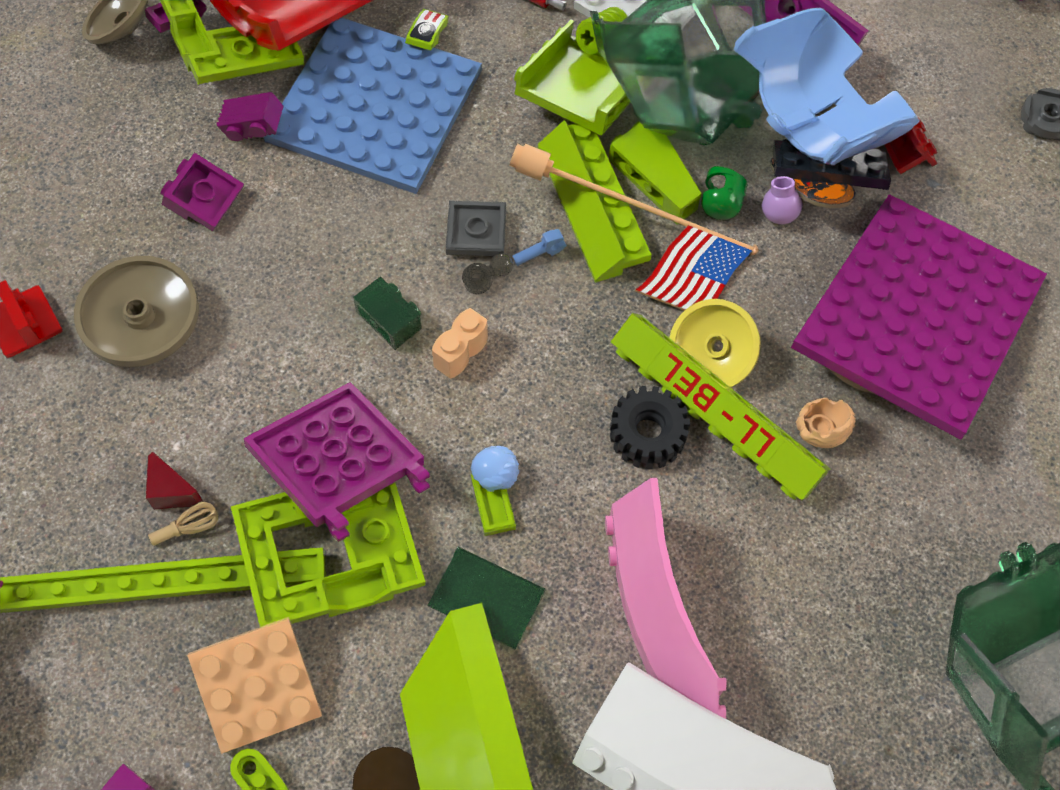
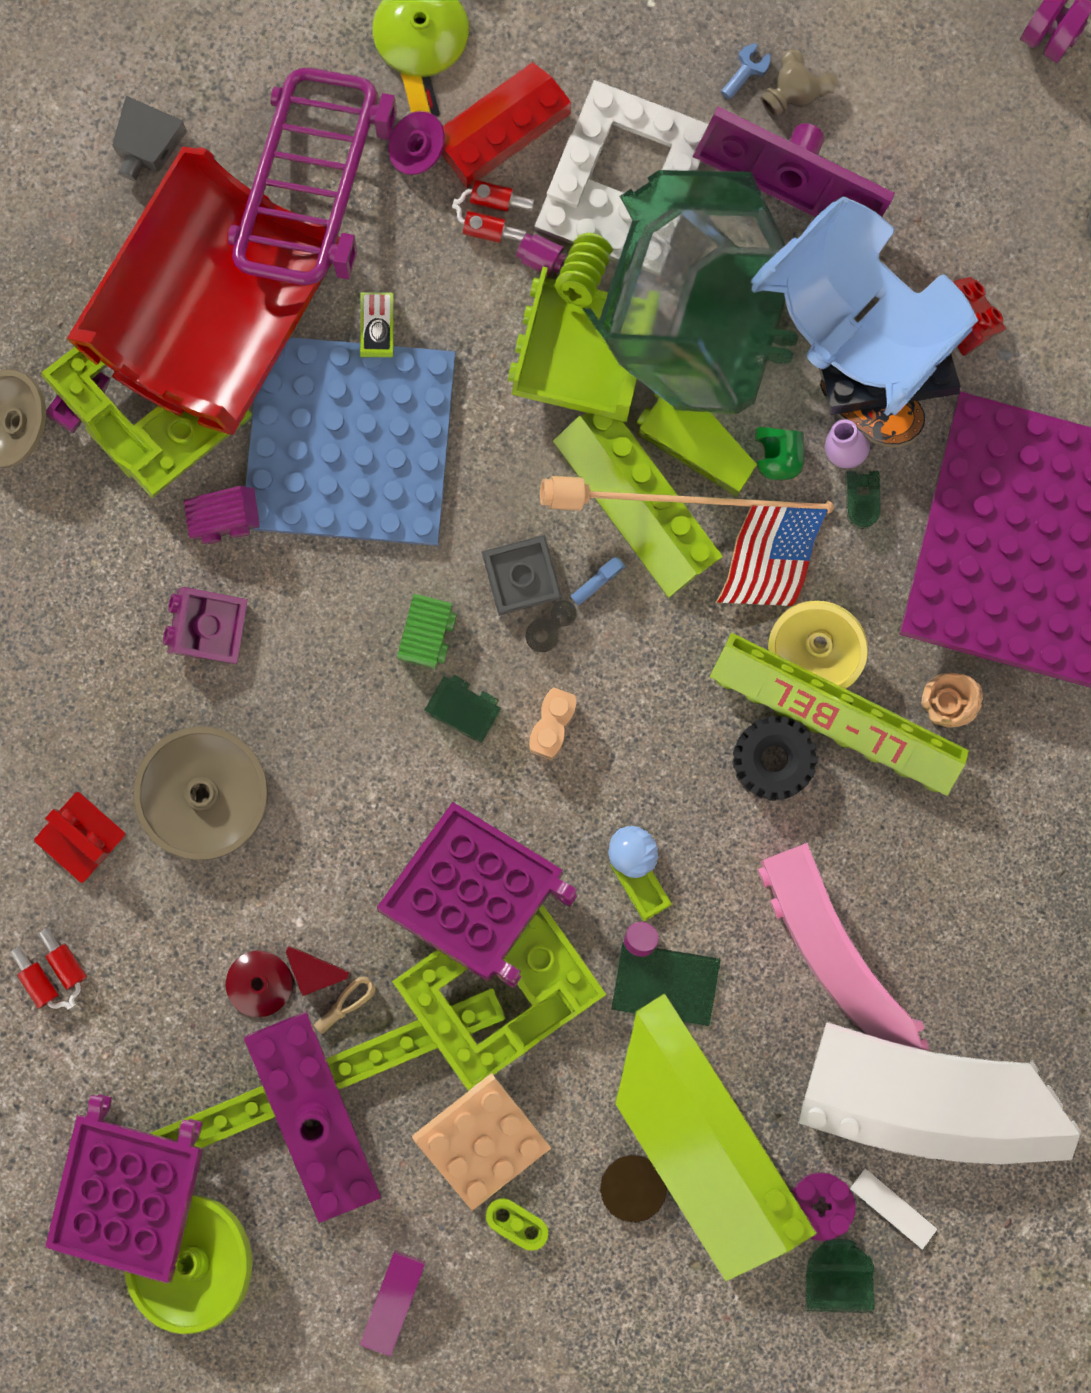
camera: 20 degrees left, 20 degrees up
(110, 643) = (303, 1089): none -> magenta plate
(124, 496) = (276, 981): none -> dark red dish
(379, 246) = (426, 631): none -> bright green brick
(476, 546) = (641, 939): none -> magenta tile
(569, 11) = (540, 252): none -> magenta brick
(782, 256) = (862, 510): none -> clear green plate

